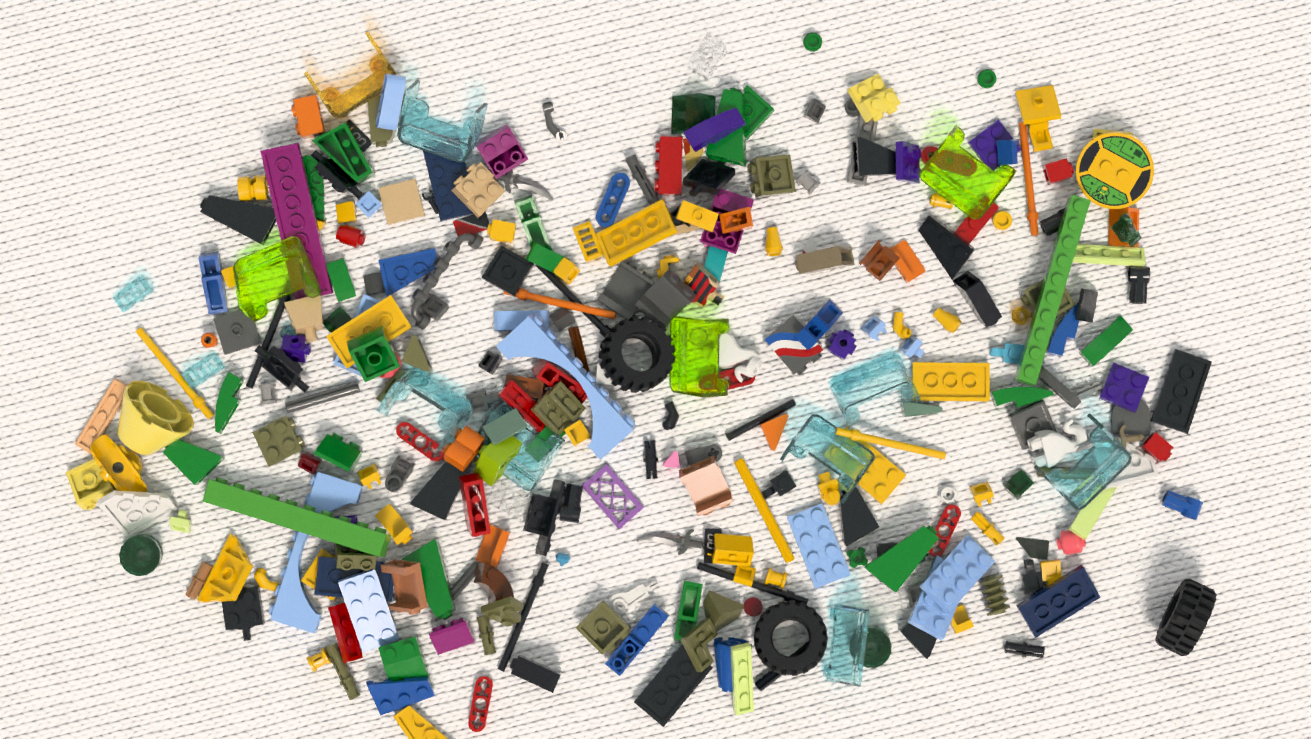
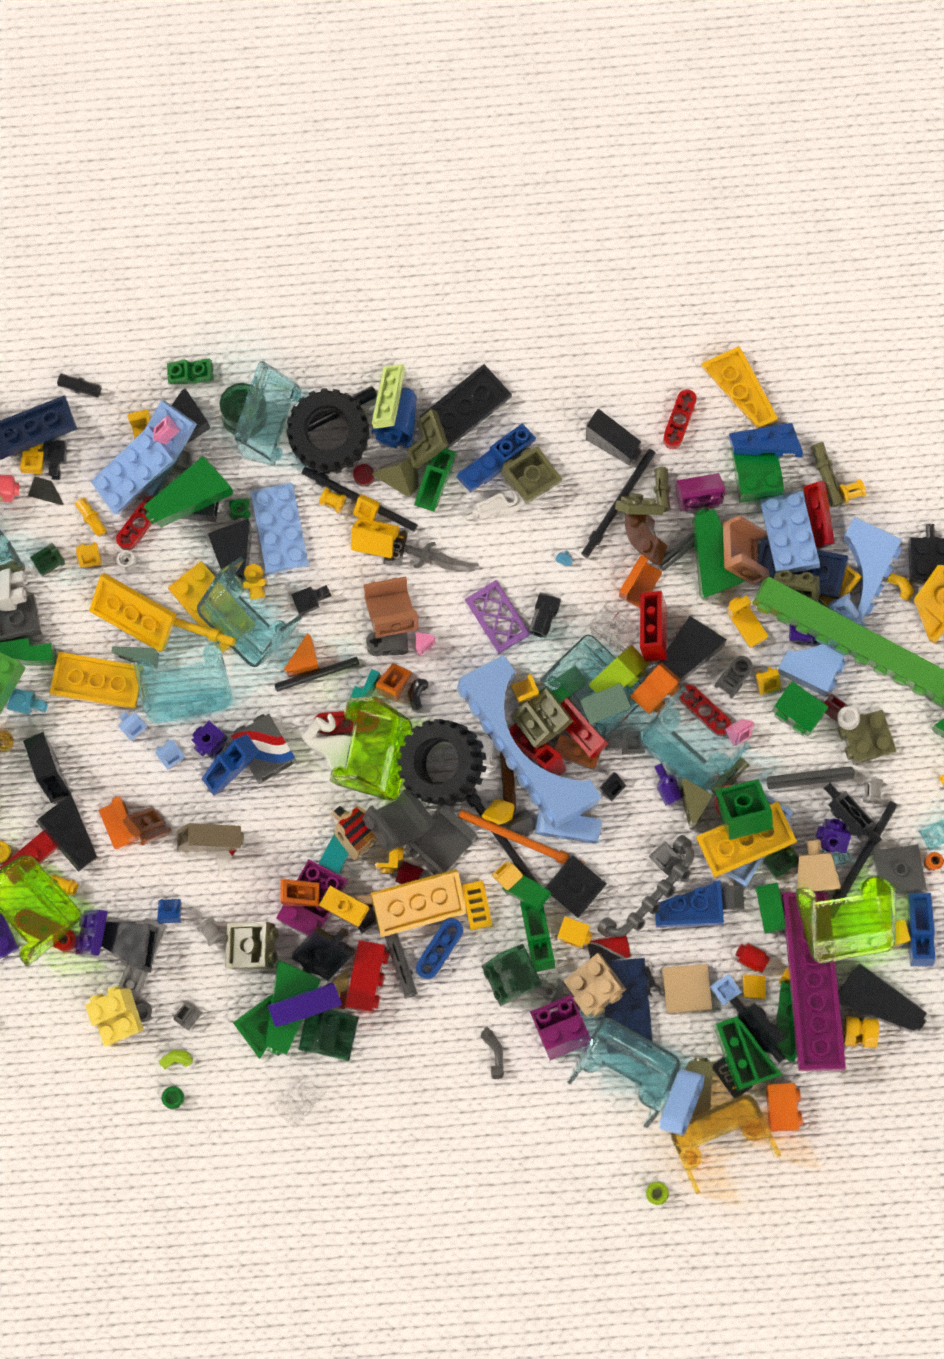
camera: 160 degrees left, 10 degrees down
(226, 401) = (920, 790): green slope -> none
(295, 450) = (848, 718): none -> white tile
(312, 547) = (844, 607): none -> light blue tile
(388, 427) = (739, 731): none -> bright pink slope
(401, 26) = (649, 1193): none -> lime plate
(442, 368) = (667, 786): none -> dark purple piece
(543, 514) = (578, 606): black bracket -> none
(548, 186) = (511, 974): none -> clear green slope
(582, 322) = (499, 811): none -> yellow slope
(649, 258) = (408, 873): none -> dark red slope
(650, 459) = (448, 649): black pin -> none
(692, 423) = (393, 682): none -> orange slope
(718, 406) = (369, 686): none -> teal slope
(764, 510) = (332, 575): yellow axle -> none
(773, 243) = (264, 869): yellow cone -> none
(814, 75) = (177, 1056): none -> lime arm
(846, 194) = (169, 911): none -> blue tile
(898, 326) = (141, 750): yellow arm -> none
(927, 679) = (190, 372): none -> green slope
(931, 445) = (132, 612): none -> yellow plate
(934, 610) = (165, 430): none -> bright pink slope
(947, 320) = (85, 749): yellow cone -> none
(995, 594) = (96, 445): olive piece -> none

